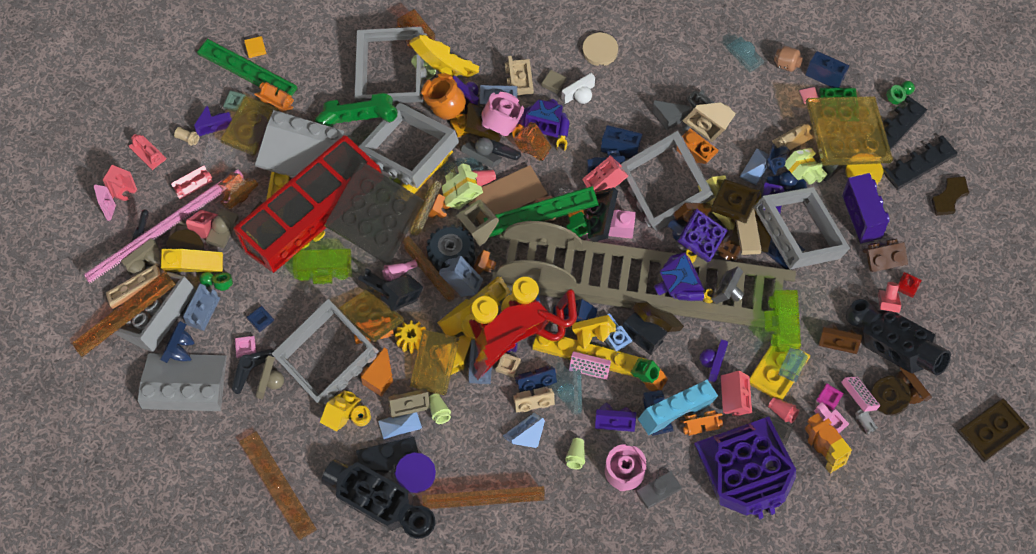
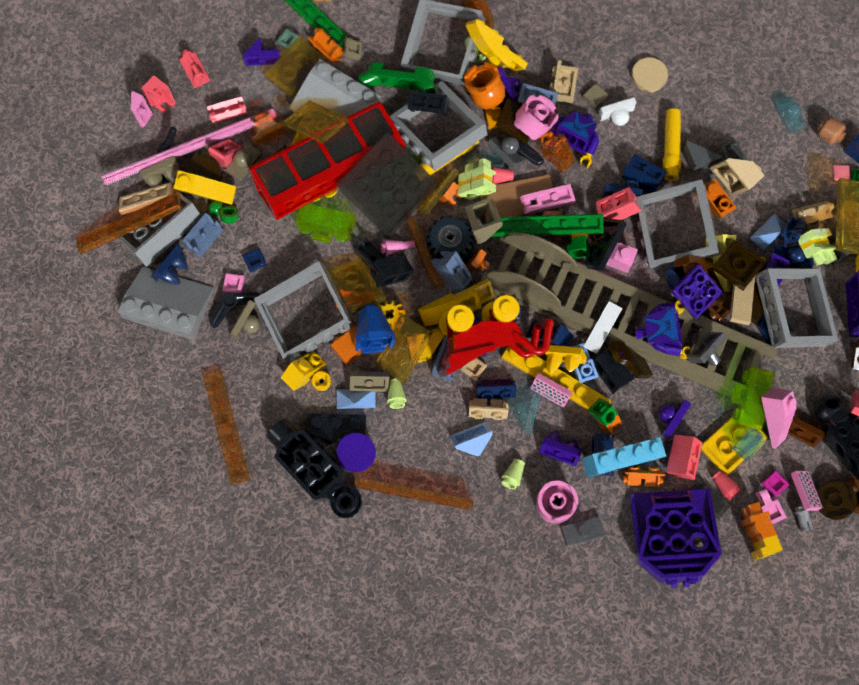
camera: 15 degrees right, 10 degrees up
(185, 135) = (238, 65): tan pin -> none
(287, 169) = (316, 121): none -> clear yellow tile
(301, 94) = (352, 48): none -> dark tan tile
(393, 124) = (428, 102): none -> black hinge
(400, 352) = (373, 331): none -> blue cone
(535, 188) = (548, 199): none -> bright pink plate
(623, 293) = (602, 327): none -> white sticker
(644, 122) = (672, 160): none -> yellow piece
(813, 327) = (779, 411): none -> bright pink slope

